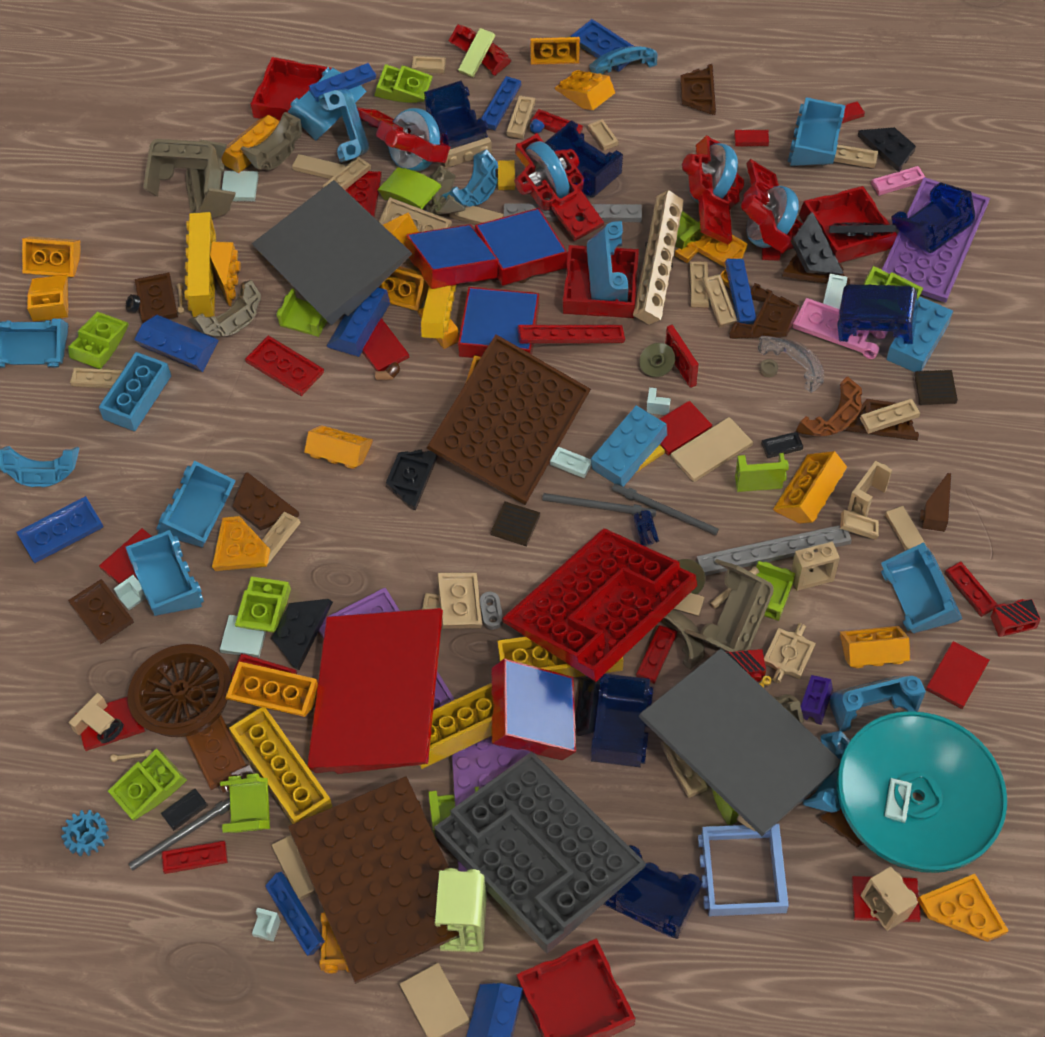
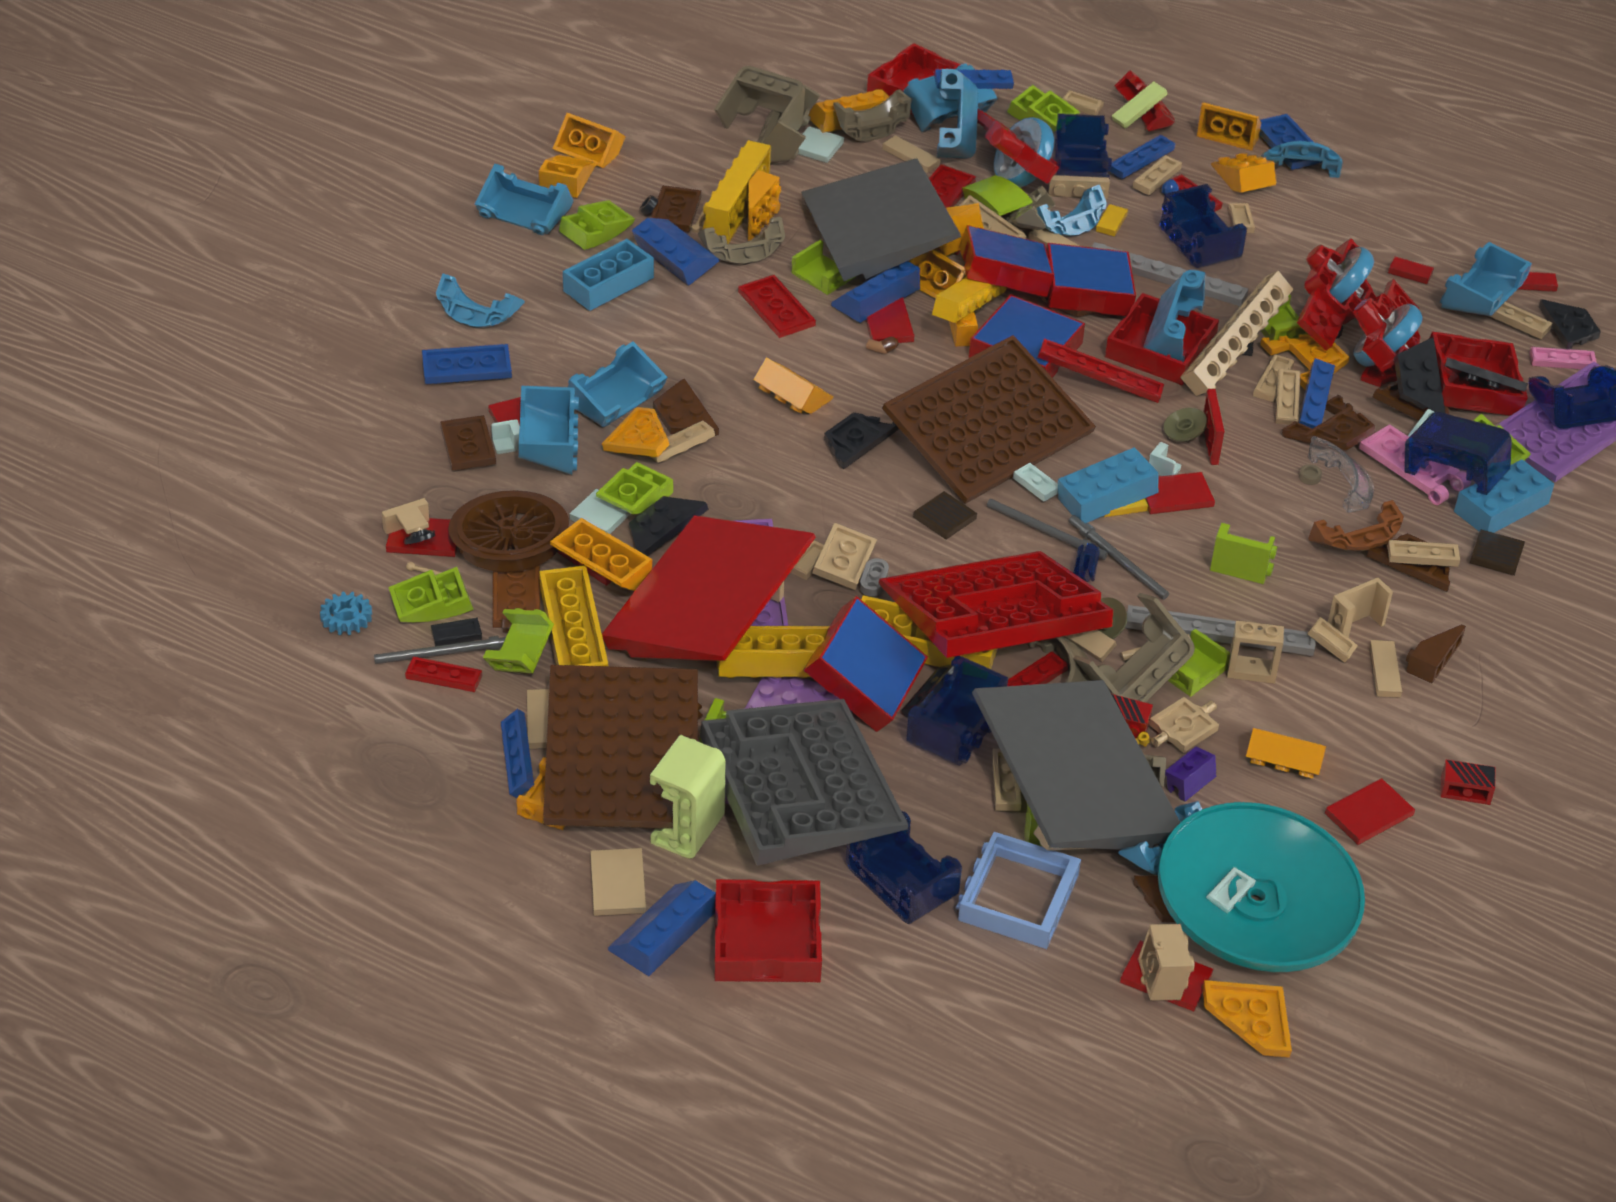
camera: 20 degrees right, 15 degrees down
(94, 377) = (569, 252): tan tile -> none
(266, 924) = (485, 752): light aqua panel -> none
(350, 173) = (944, 166): tan tile -> none
(546, 178) = (1156, 233): red piece -> none
(698, 90) = (1374, 210): reddish brown wing -> none
(711, 449) = (1200, 522): tan tile -> none
(782, 444) = (1289, 545): black tile -> none
(811, 487) = (1297, 590): light orange slope -> none
(901, 690) = (1258, 783): dark azure windscreen -> none
(921, 589) = (1371, 717): dark azure windscreen -> none
(971, 589) = (1430, 740): red tile -> none

